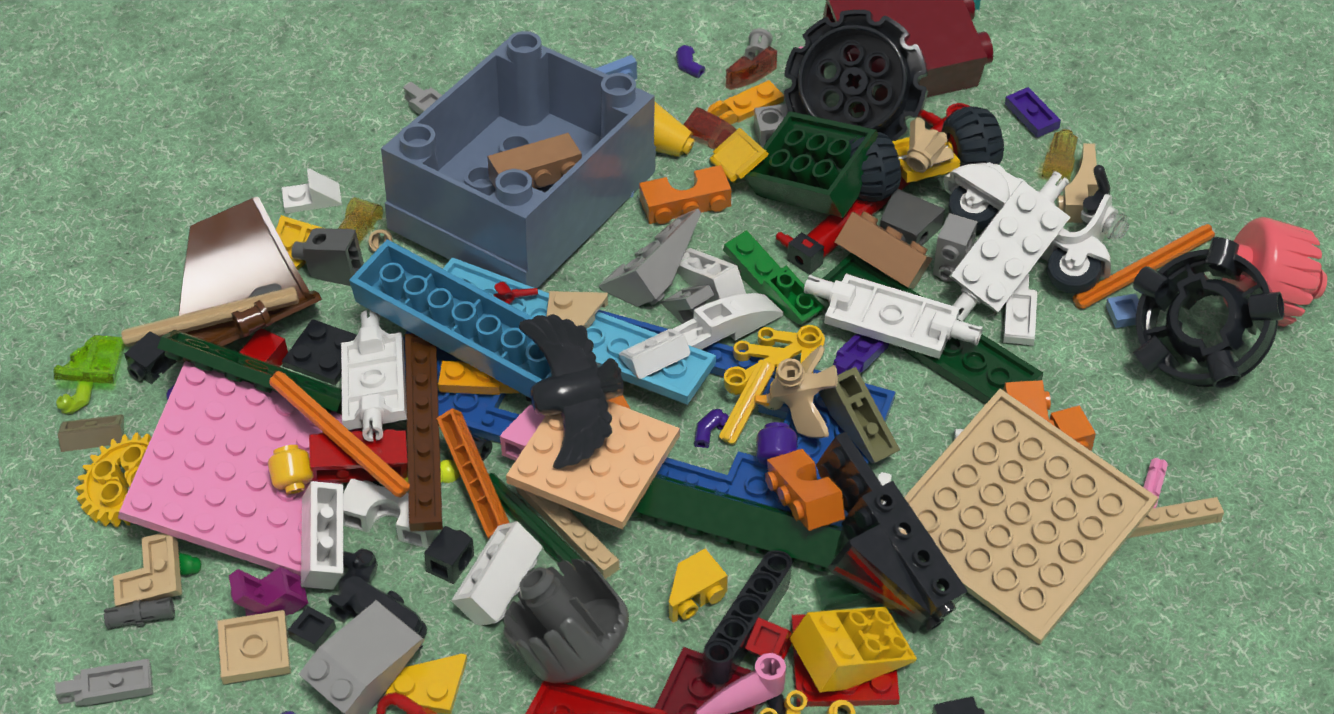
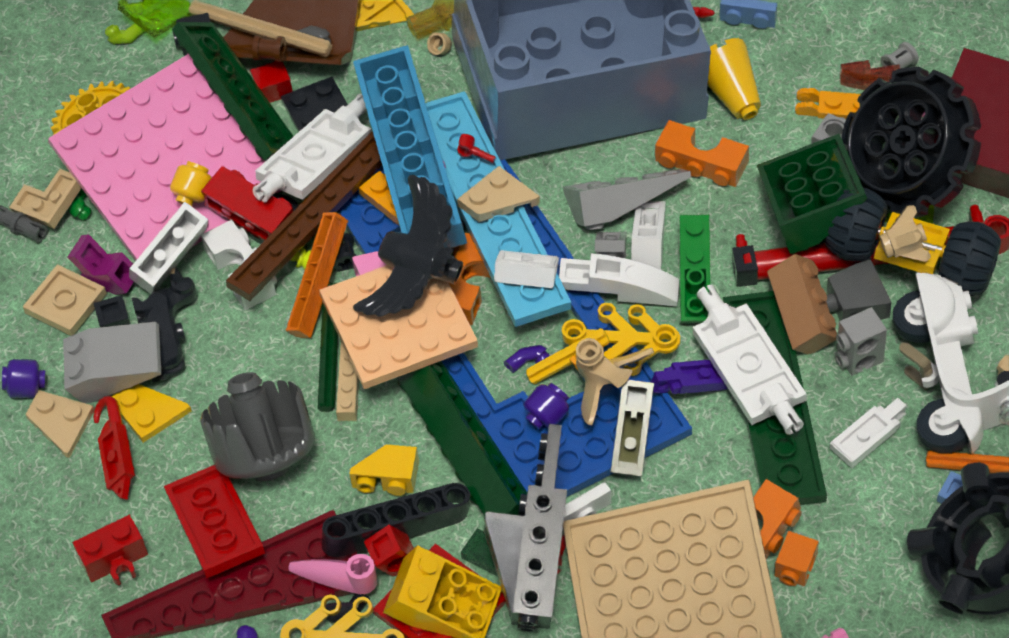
camera: 45 degrees right, 5 degrees up
(90, 432) = (111, 66): dark tan slope -> none
(330, 254) = (384, 24): dark grey torso -> none
(339, 434) = (238, 179): orange axle -> none
(449, 554) = (248, 324): black brick -> none
(497, 574) = (267, 357): white brick -> none
(543, 160) = (580, 50): medium nougat brick -> none
(685, 61) = (825, 38): dark purple arm -> none
(709, 127) = (783, 113): clear red slope -> none
(738, 155) = (772, 146): yellow window -> none
(796, 484) = (517, 453): orange arch -> none
(1010, 246) = (894, 368): white plate -> none

